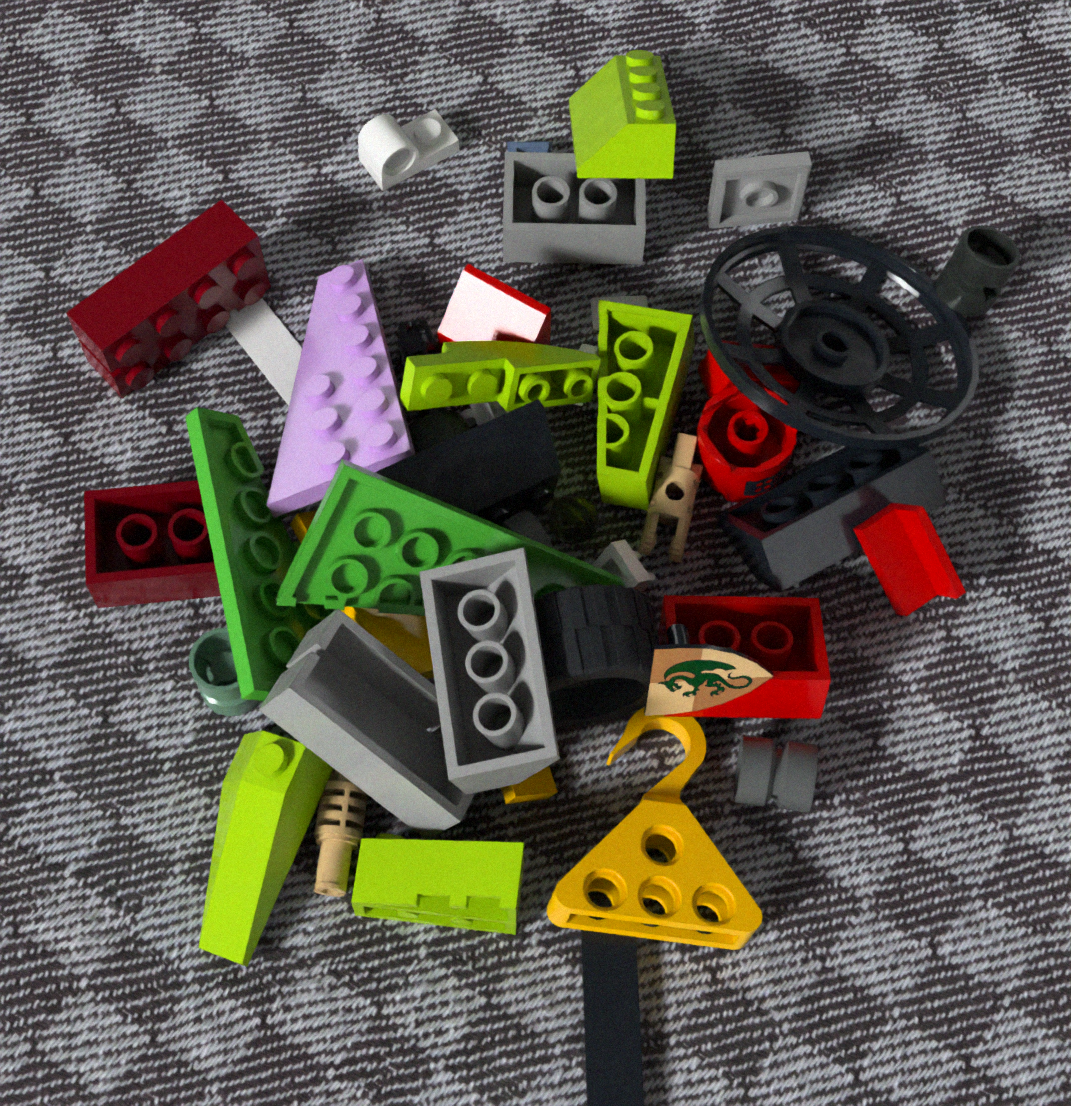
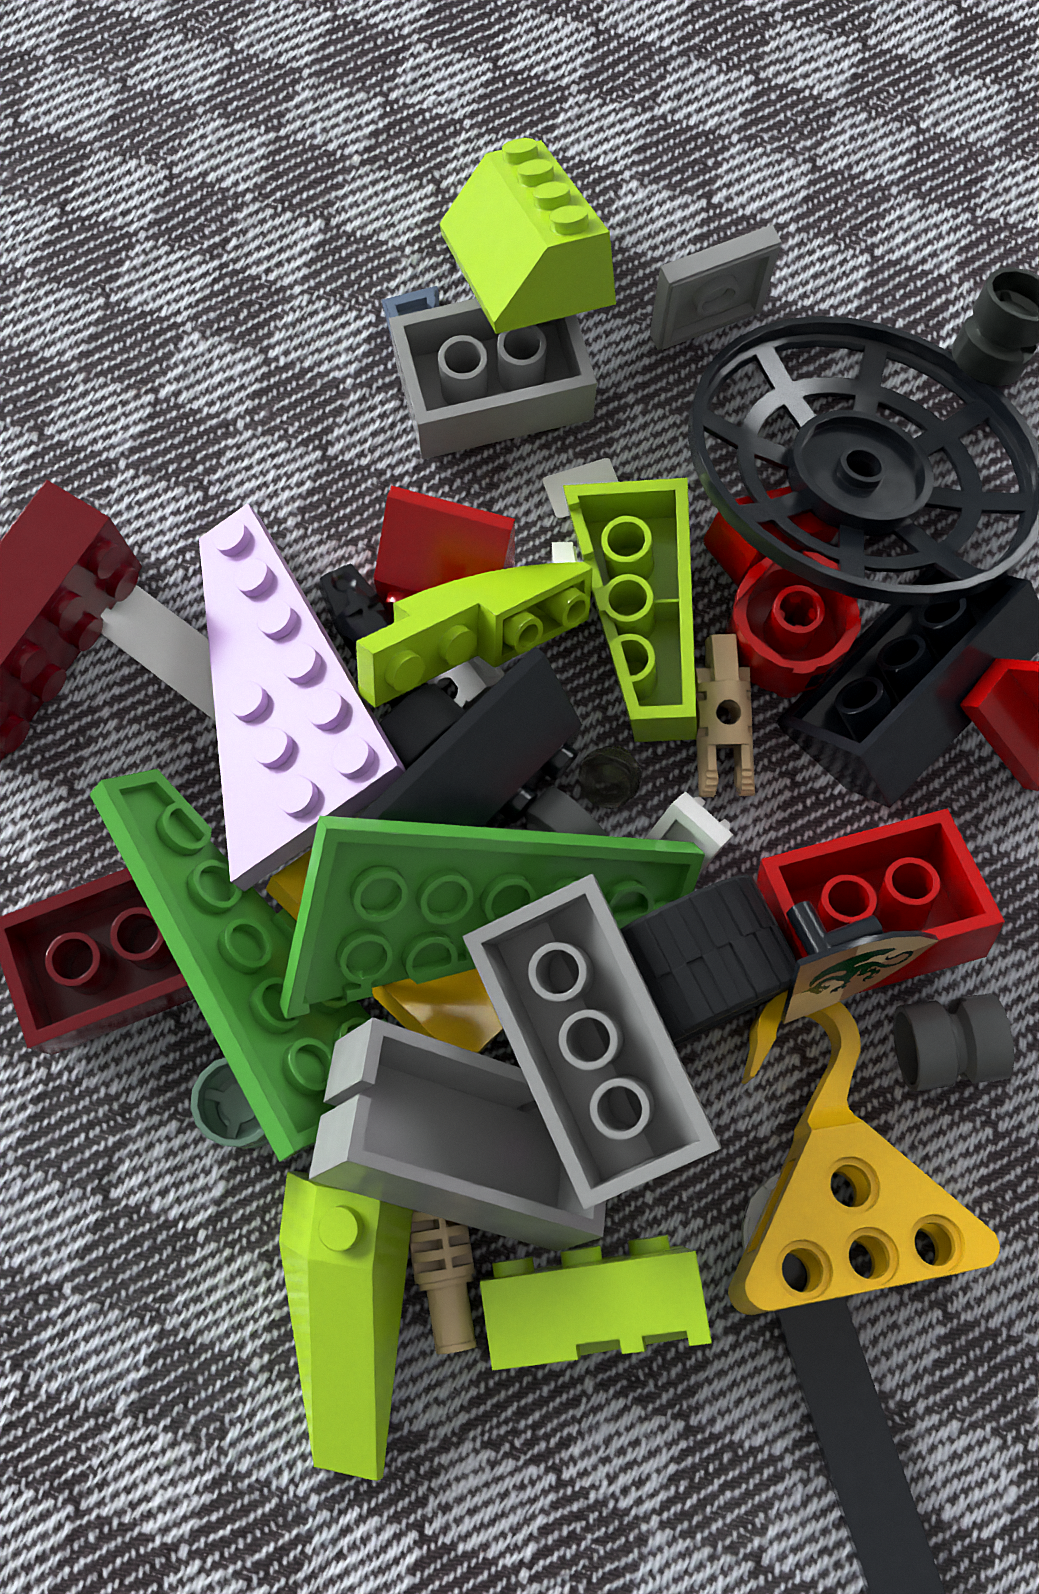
camera: 15 degrees left, 10 degrees up
(399, 152) = (253, 345): white plate -> none

